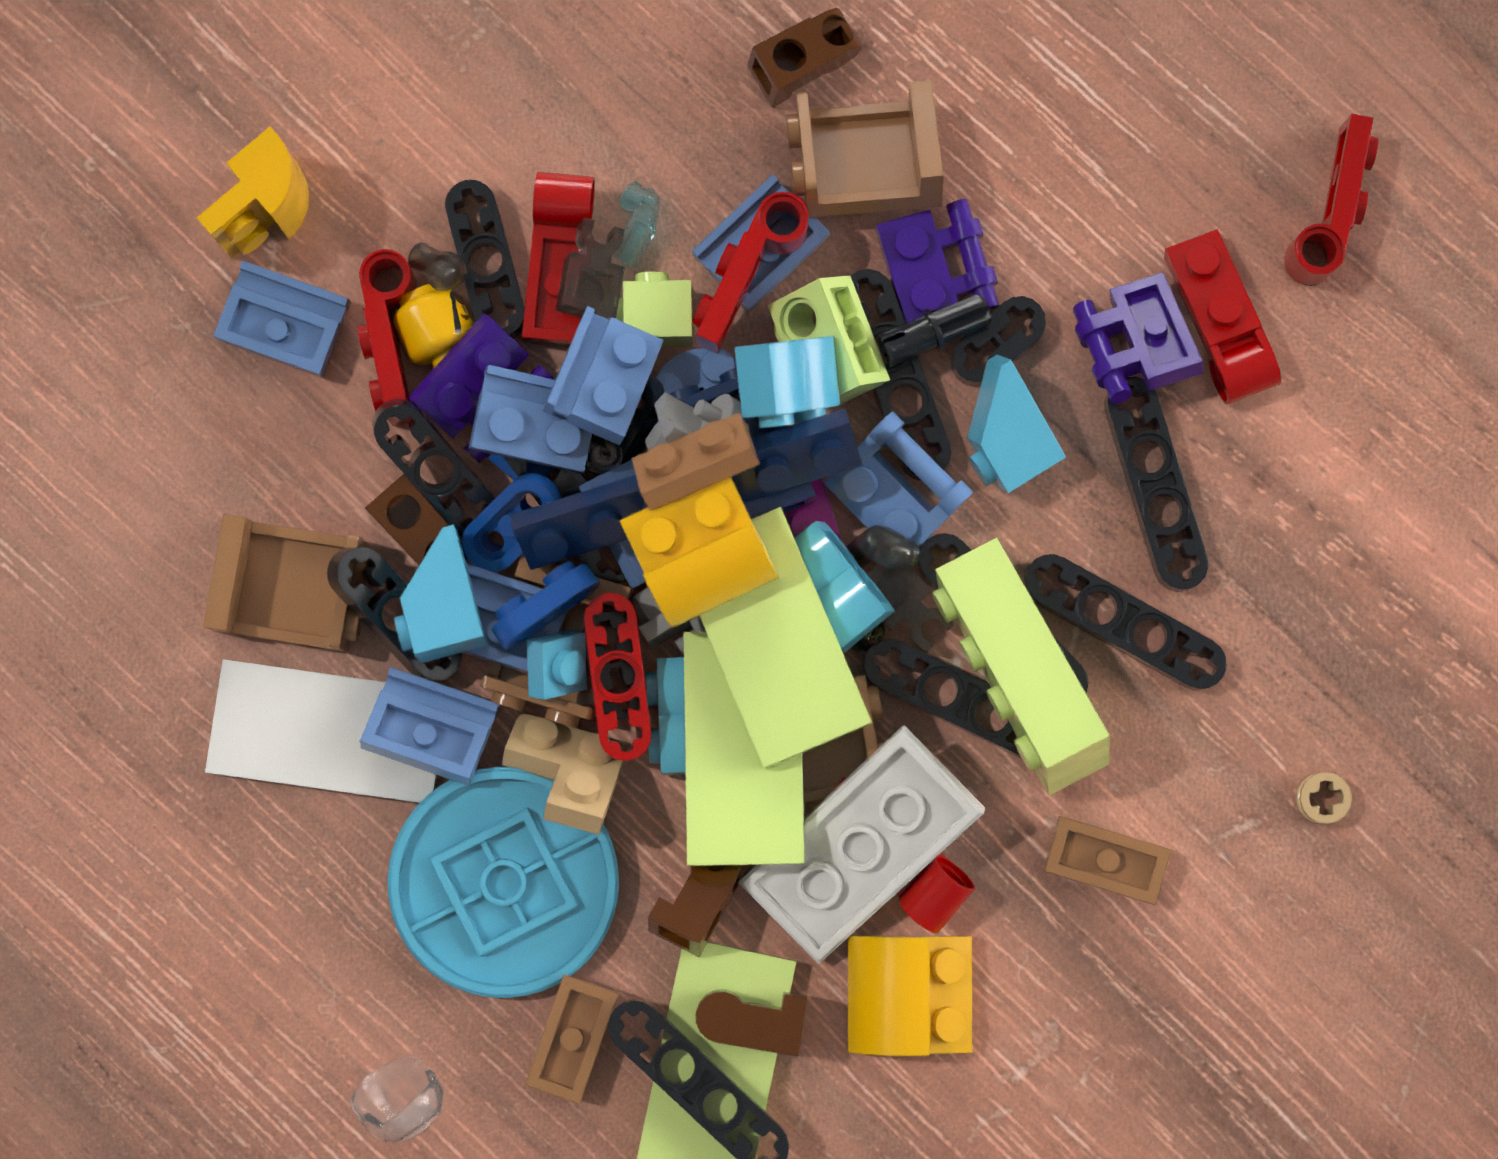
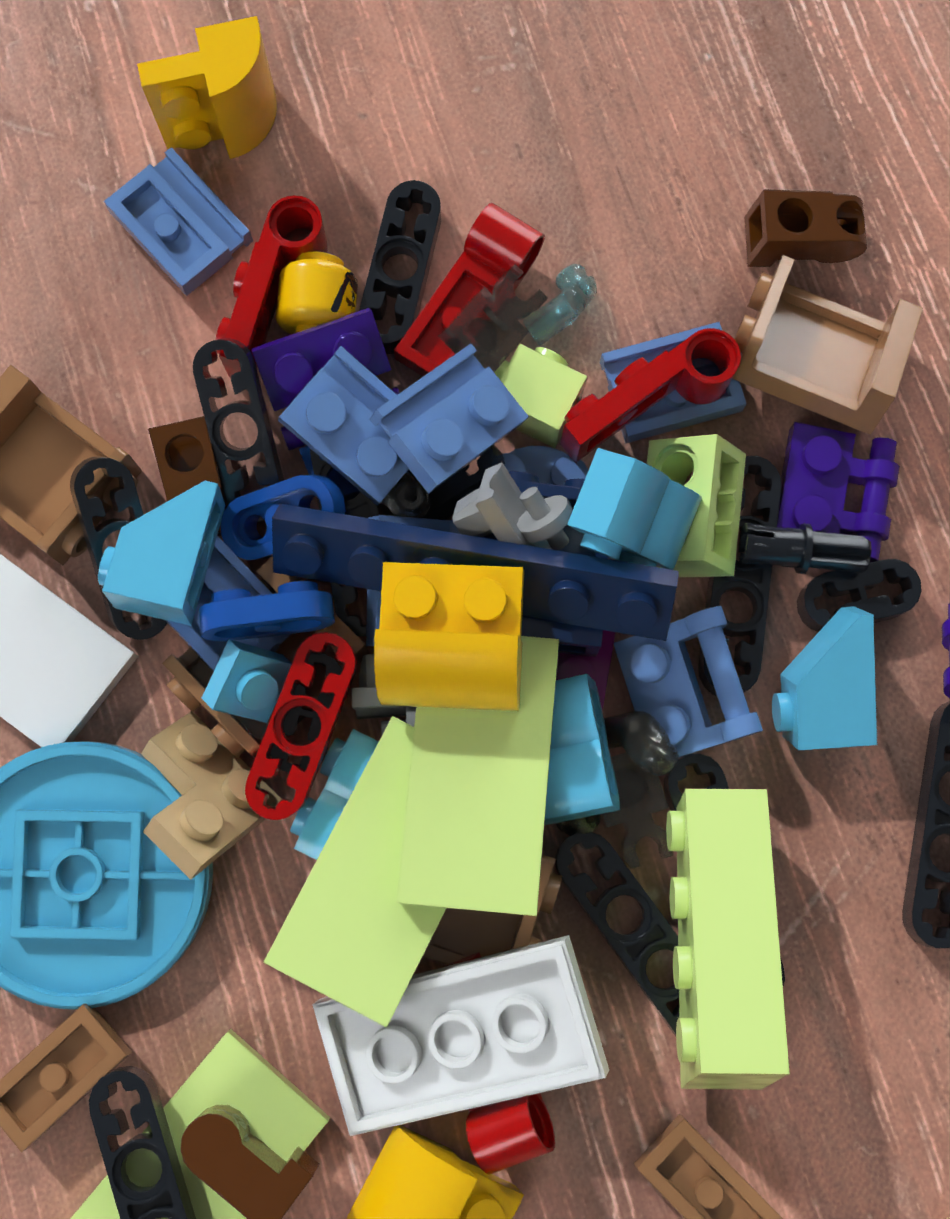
camera: 25 degrees right, 5 degrees down
(429, 726) = (90, 677): medium blue plate -> none
(443, 269) = (351, 245): clear smoke arm -> none
(694, 461) = (494, 541): medium nougat plate -> none
(697, 907) = (253, 1010): reddish brown leg -> none
(1127, 615) = (854, 941): black beam -> none

